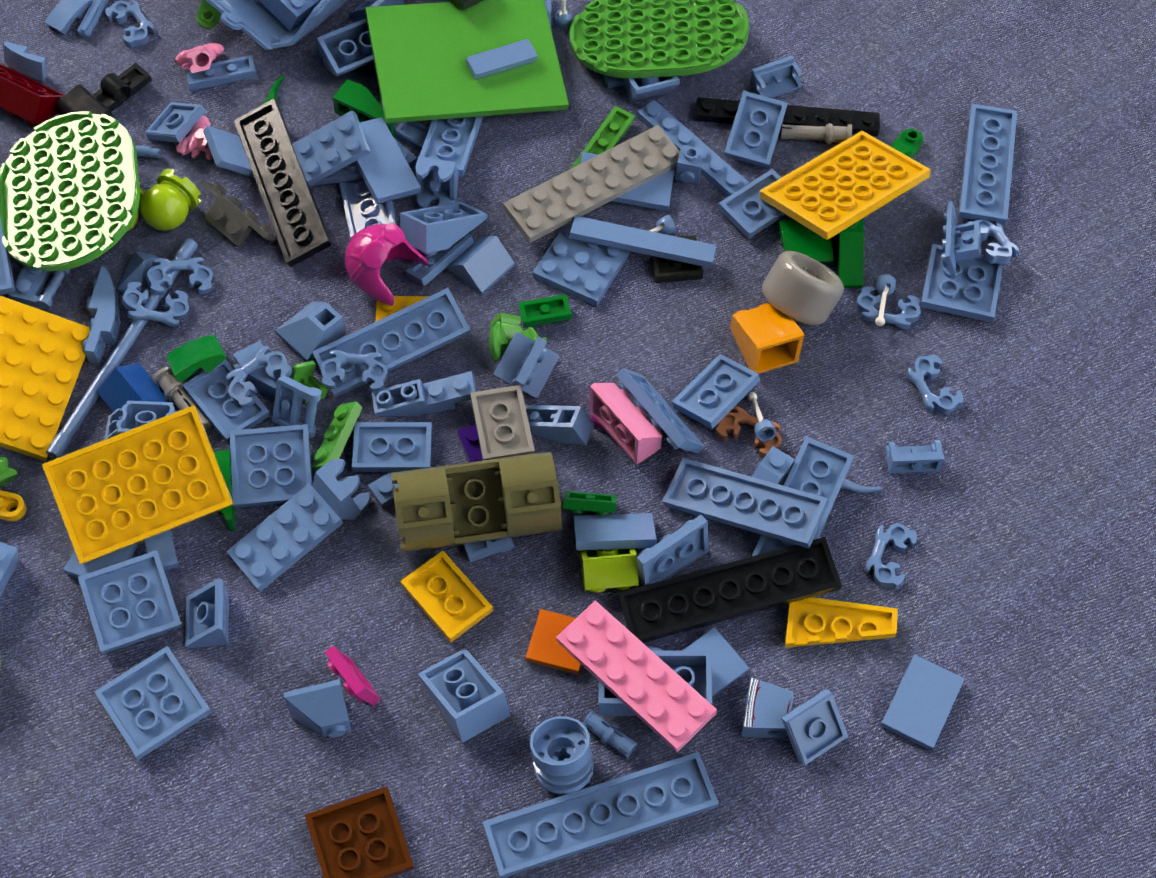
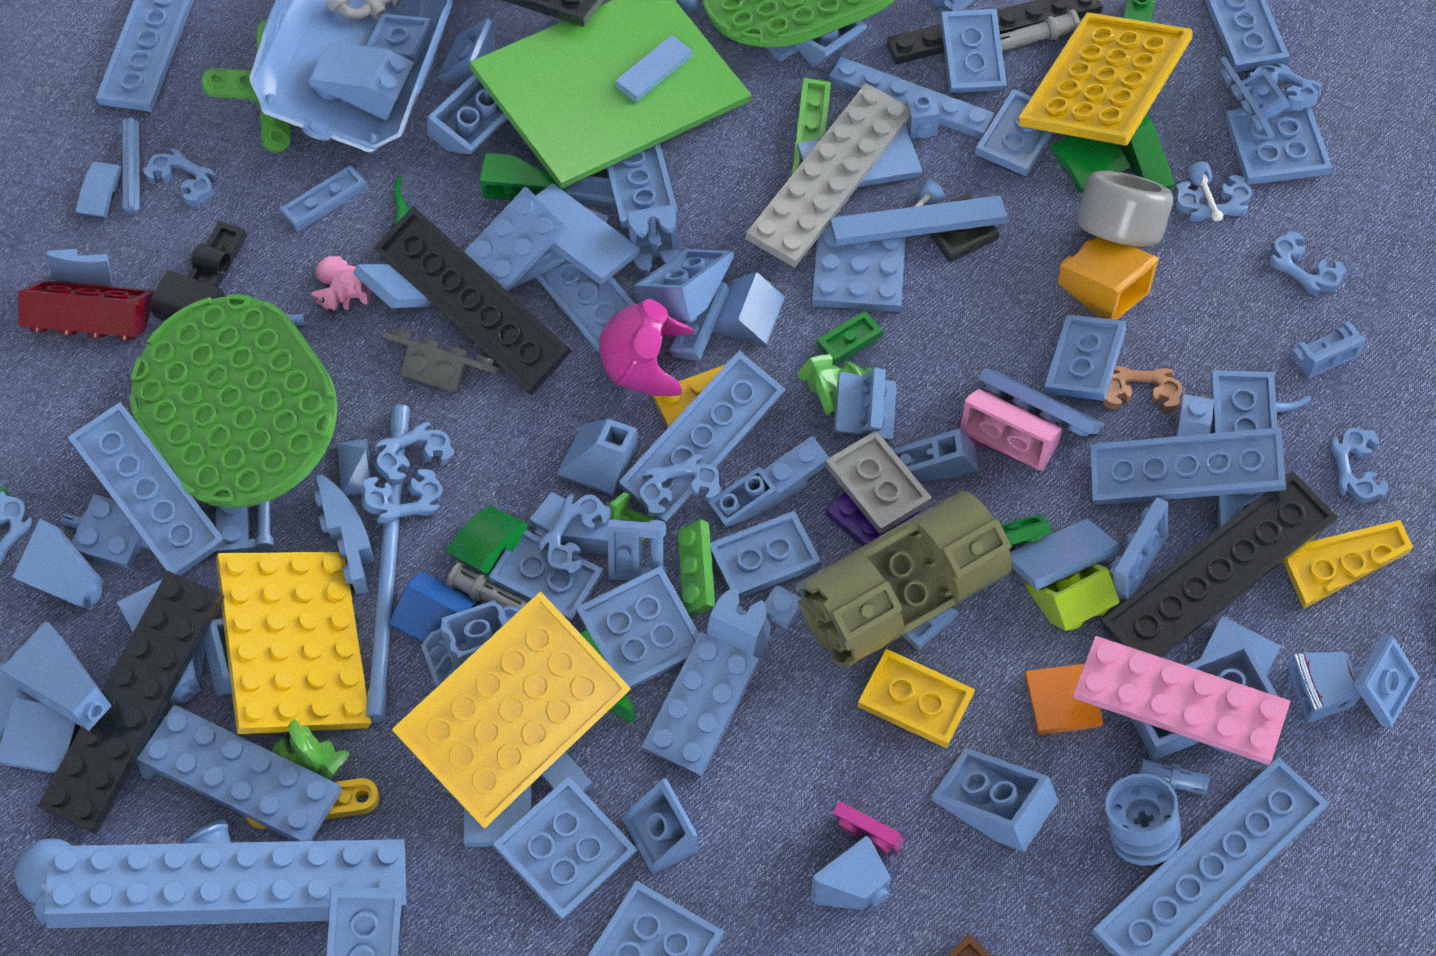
camera: 20 degrees left, 0 degrees up
(169, 201) = (356, 367): lime tile -> none
(175, 122) = (305, 275): medium blue tile -> none
(199, 57) = (294, 190): bright pink animal -> none
(763, 424) = (1159, 379): medium blue hinge -> none

